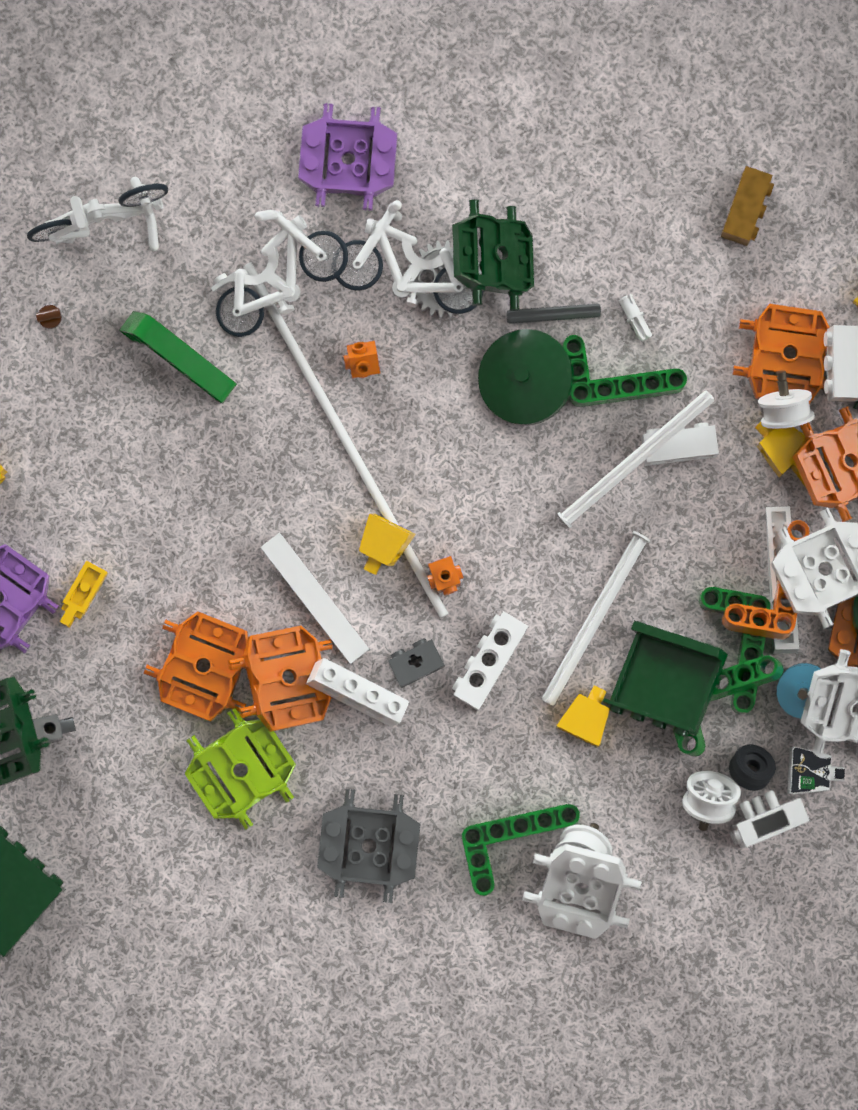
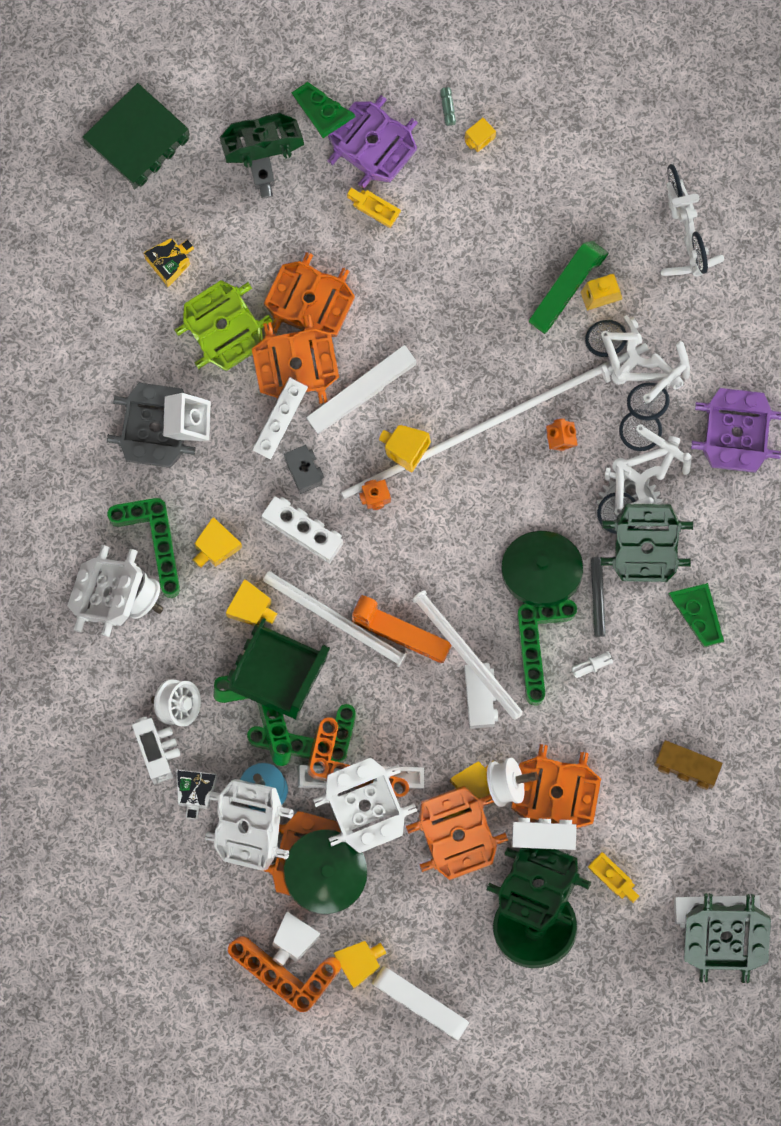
camera: 90 degrees right, 5 degrees down
(49, 316) = (606, 187): reddish brown plate -> none
(157, 839) = (169, 259): none -> torso
(184, 317) = (601, 291): none -> yellow torso
(362, 805) = (186, 417): none -> white slope
(513, 764) = (215, 544): none -> yellow torso
(568, 196) = (699, 613): none -> green wing
(609, 538) = (398, 631): none -> orange beam
(758, 758) = (211, 742): black tyre -> none

